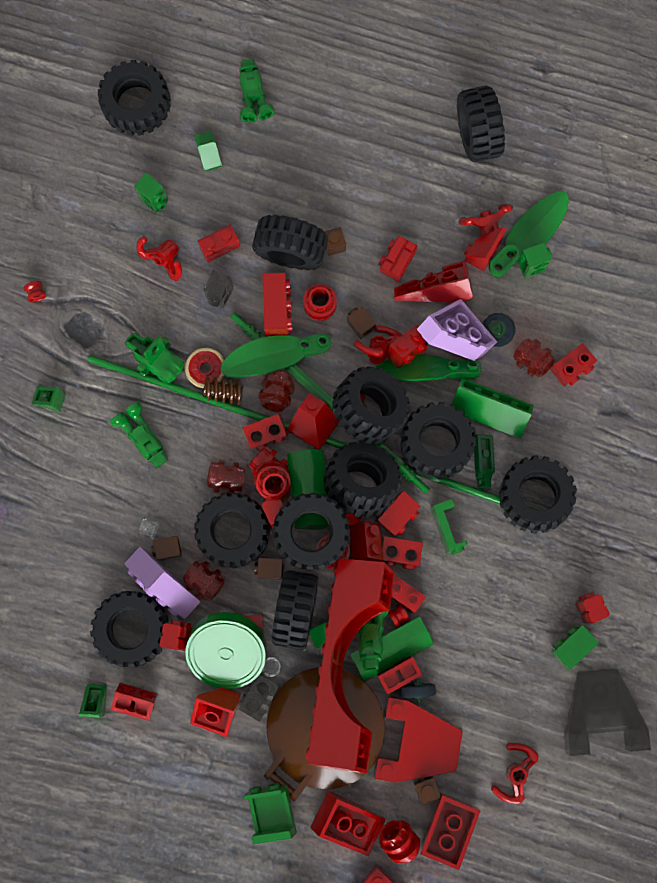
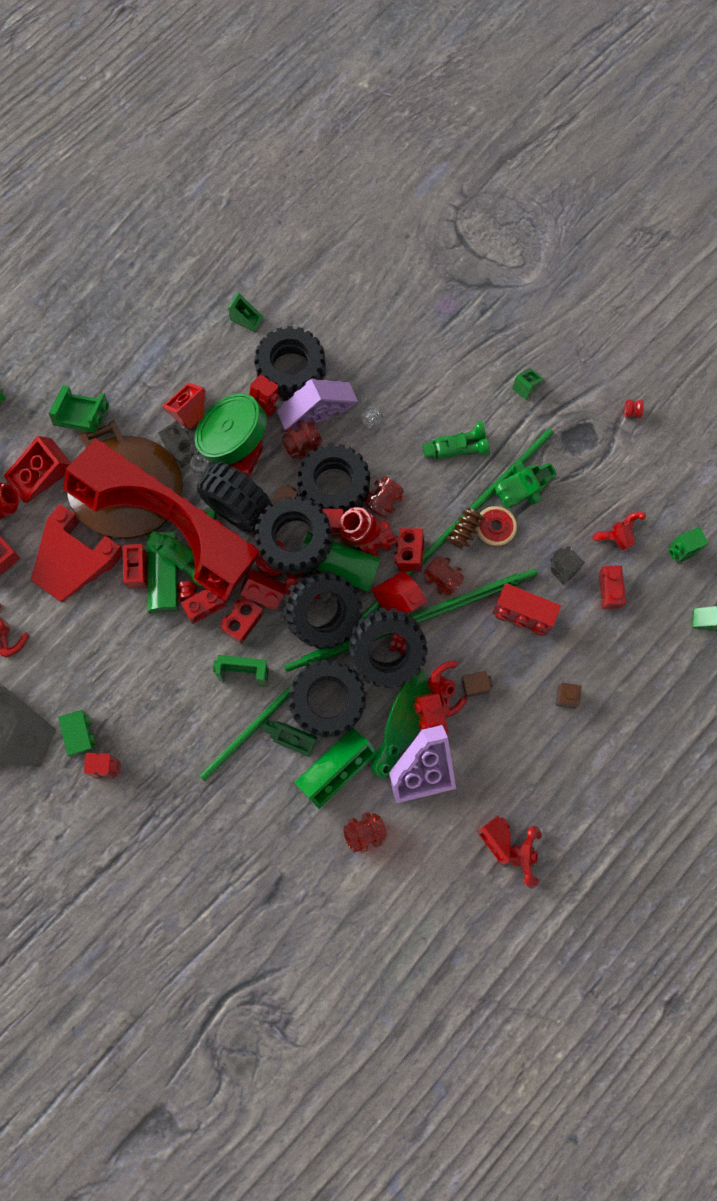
camera: 110 degrees right, 5 degrees down
(134, 701) = (228, 342): red brick -> none
(166, 548) = (345, 423): reddish brown brick -> none
(272, 354) = (480, 588): green plant -> none
(290, 242) = (581, 645): black tyre -> none
(319, 291) = (518, 643): red piece -> none
(398, 258) = (525, 749): red brick -> none
(398, 514) = (277, 632): red brick -> none
(418, 690) = (112, 576): black wheel -> none
(426, 790) = (27, 545): reddish brown brick -> none
(445, 286) = (476, 781): red wedge -> none
(480, 123) = (630, 892): black tyre -> none
(500, 327) = (409, 814): black wheel -> none
(531, 229) = (496, 898): green plant -> none
(534, 260) = (463, 882): green brick -> none
(545, 471) = (221, 740): black tyre -> none
(573, 365) = (339, 869): red brick -> none

